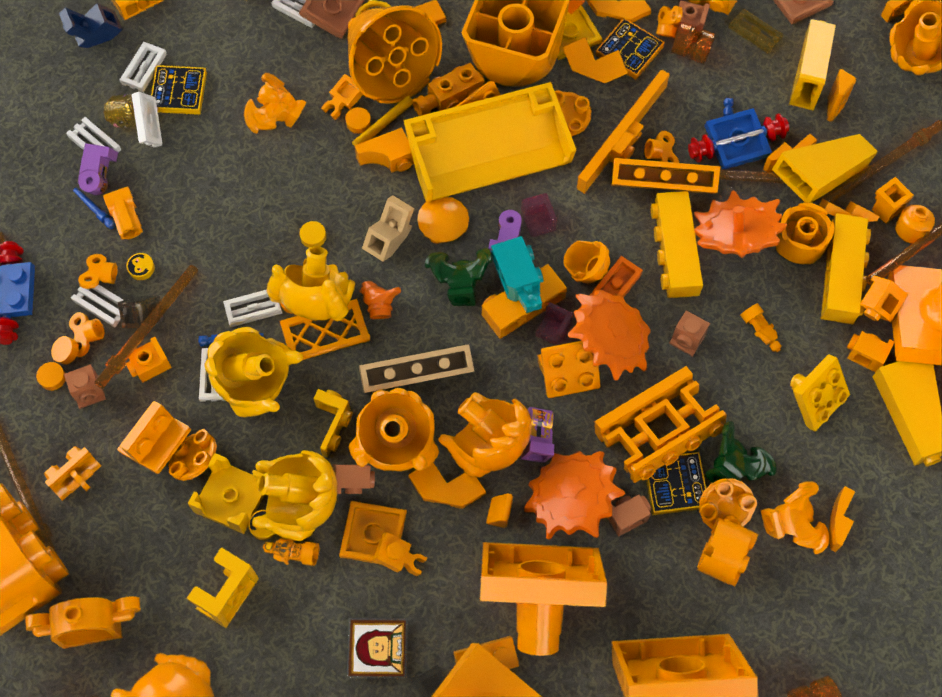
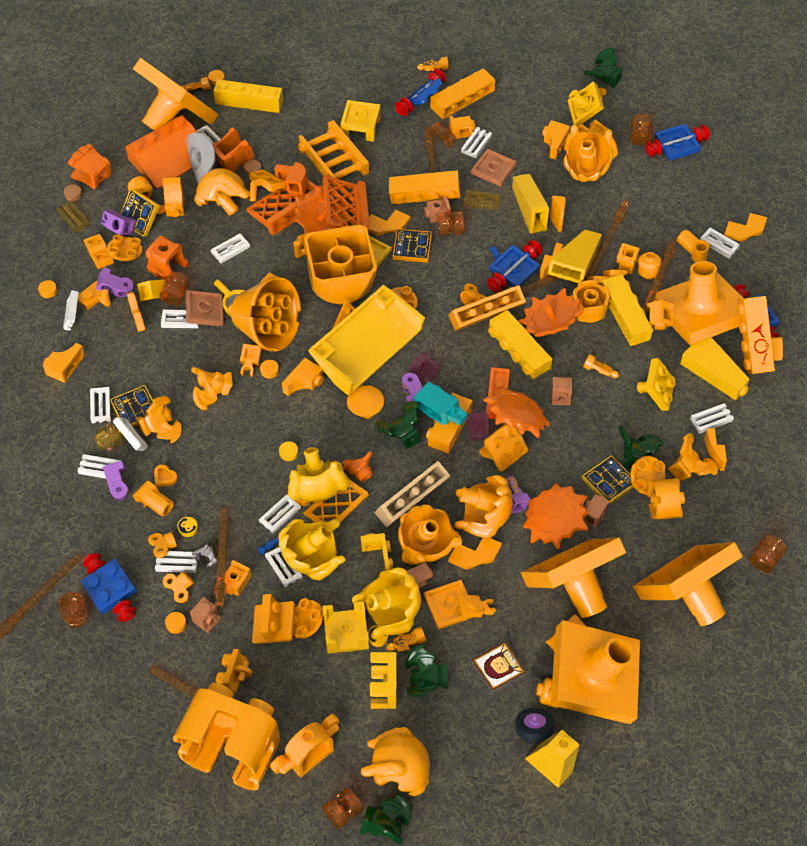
camera: 30 degrees left, 10 degrees down
(64, 350) = (174, 601): light orange piece -> none
(93, 28) = (49, 396): dark blue brick -> none
(101, 214) = (137, 509): blue piece -> none
(155, 190) = (164, 476): none -> light orange tile
(188, 118) = (157, 419): none -> light orange animal
(282, 610) = (428, 675): none -> dark green animal
(384, 121) = (286, 362): yellow bar -> none
(390, 231) = (338, 421): tan brick -> none
(449, 89) = (323, 314): light orange brick -> none
(500, 510) = (518, 549): light orange slope -> none
(583, 62) = (404, 265): light orange tile -> none
(587, 261) = (473, 379): light orange piece -> none
(624, 147) = (449, 303): light orange plate -> none
(636, 113) = (442, 295): light orange tile -> none
(648, 407) = (566, 444): light orange fence -> none
(667, 19) = (427, 217): light orange piece -> none
(869, 350) = (670, 349): light orange brick -> none
(889, 475) = (725, 412): none -> white tile

